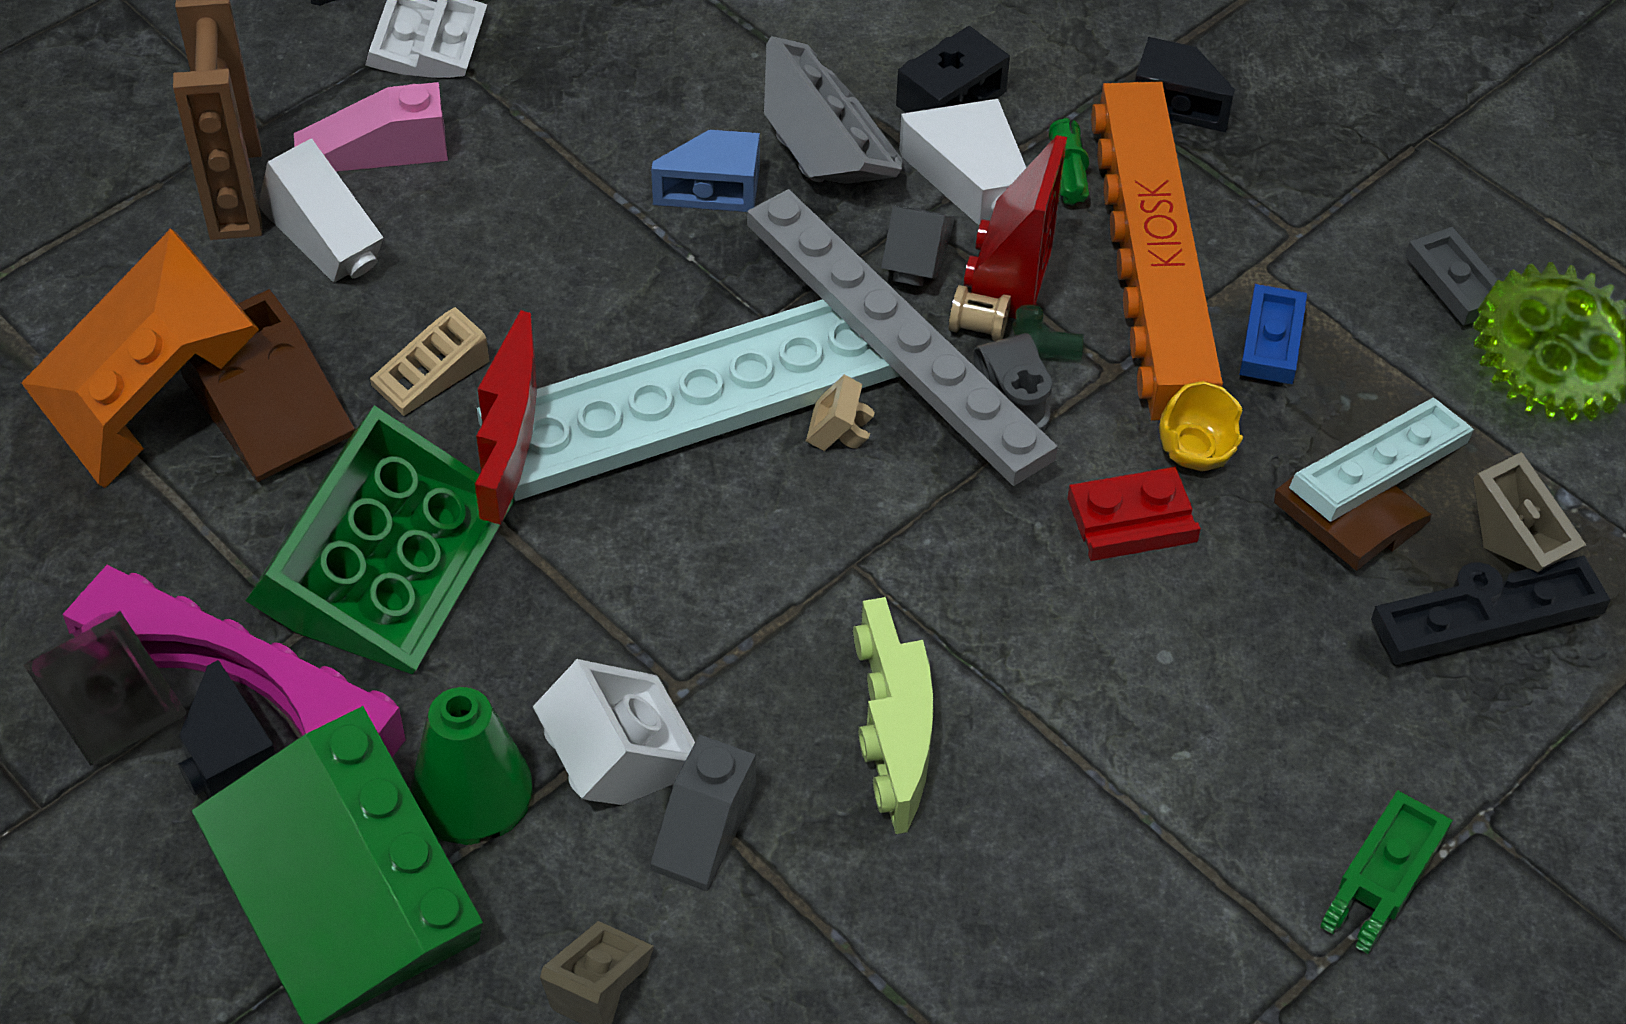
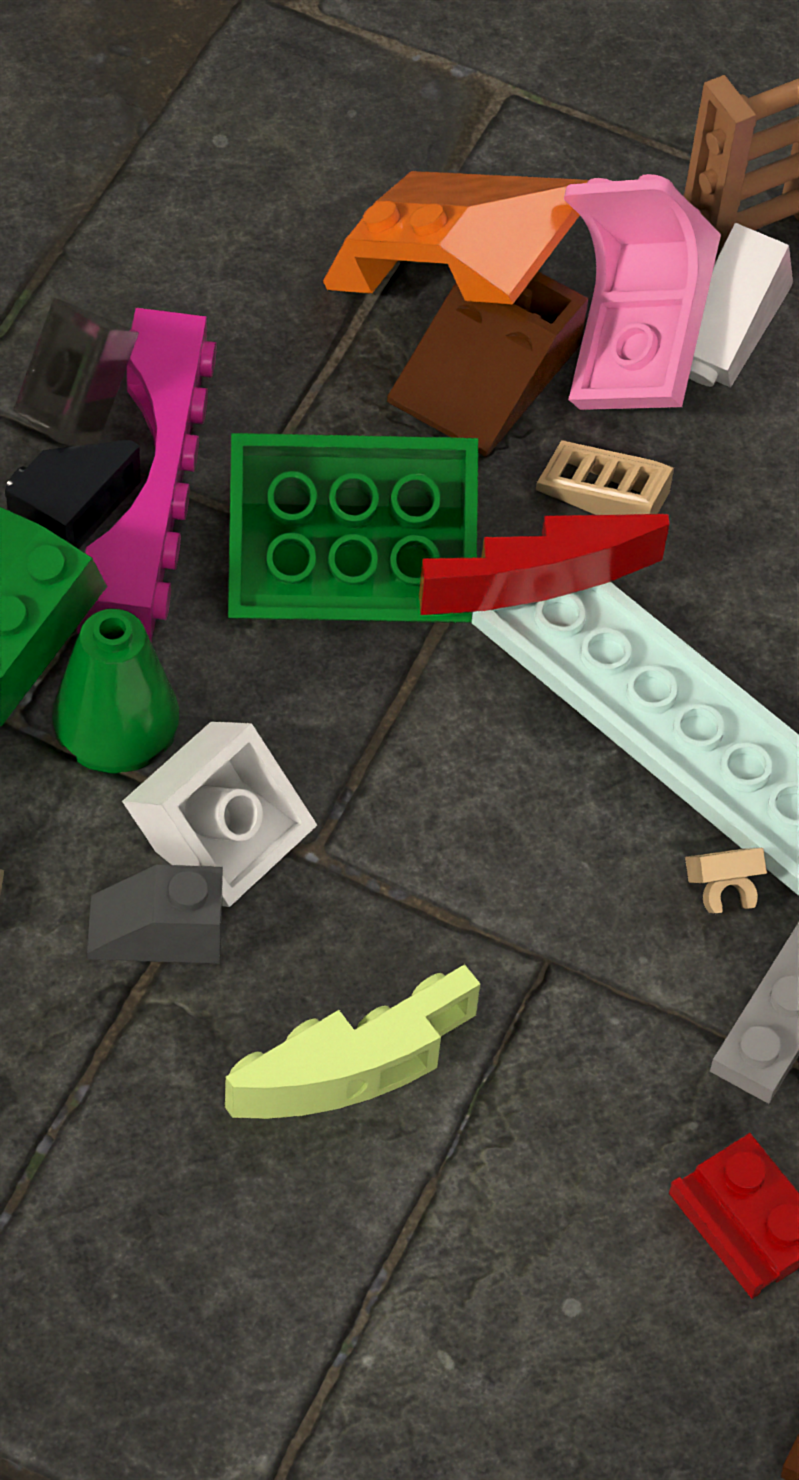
camera: 65 degrees right, 5 degrees up
(282, 242) = (648, 292): none -> bright pink bracket

